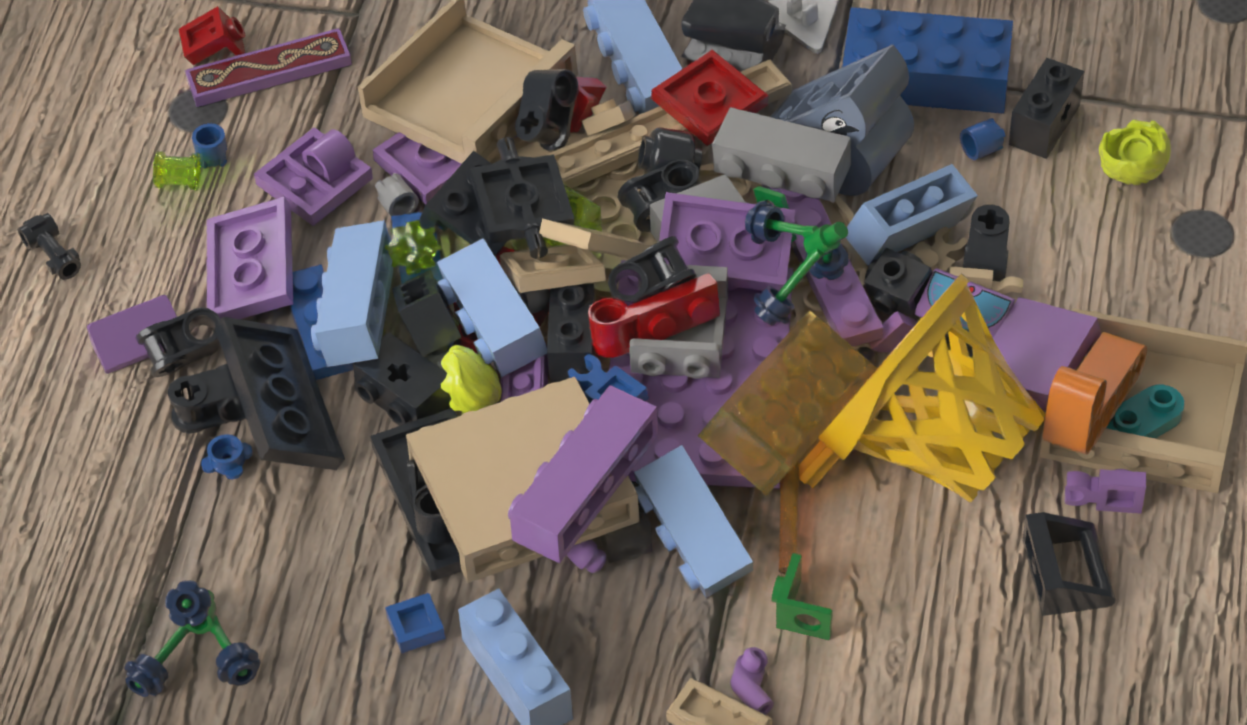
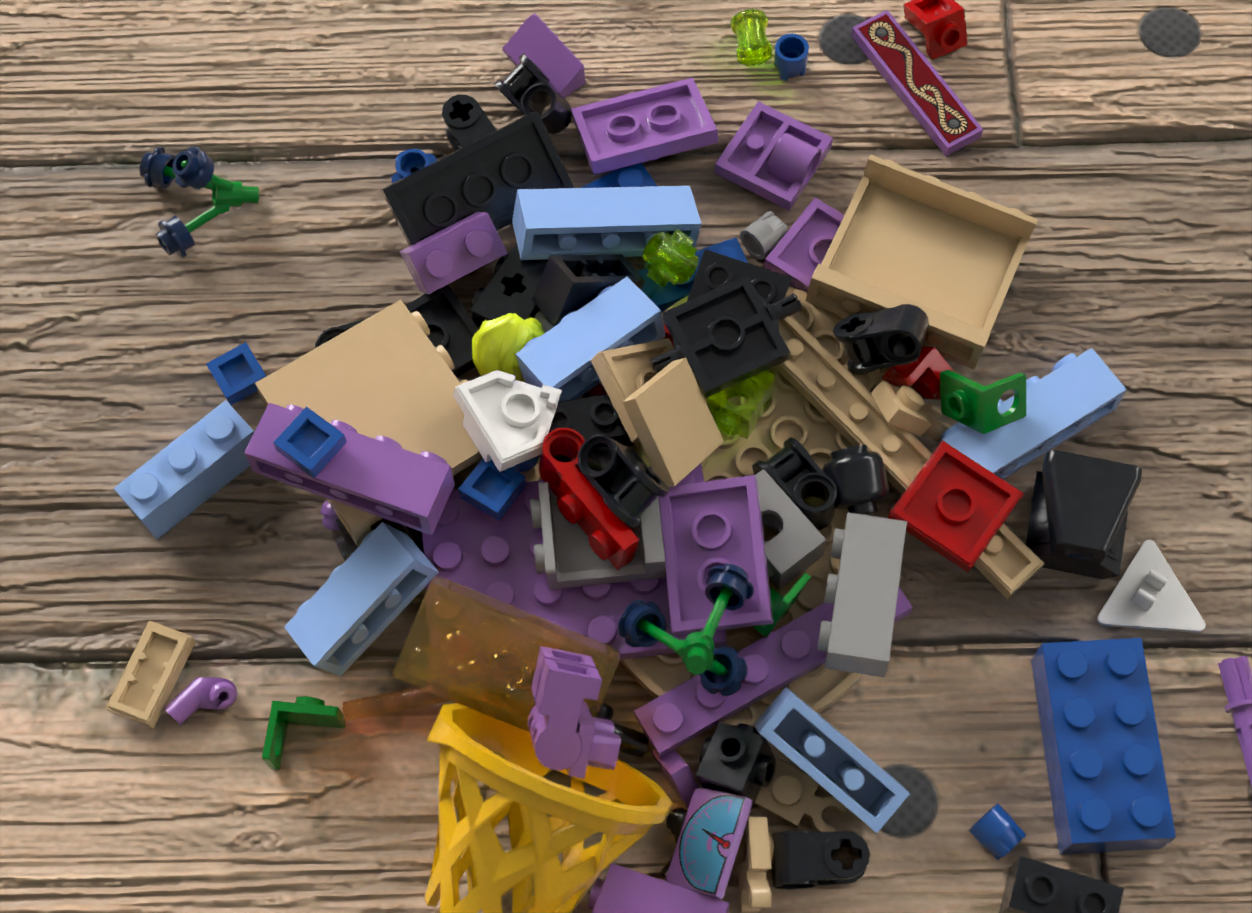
camera: 80 degrees right, 15 degrees up
(346, 417) = (453, 252): none -> medium lavender brick
(564, 357) = (506, 416): none -> white plate
(567, 471) = (310, 442): none -> blue plate
(621, 64) = (978, 404): none -> green bracket
(856, 329) = (561, 722): none -> medium lavender hips
(860, 104) = (952, 657): sand blue brick -> none

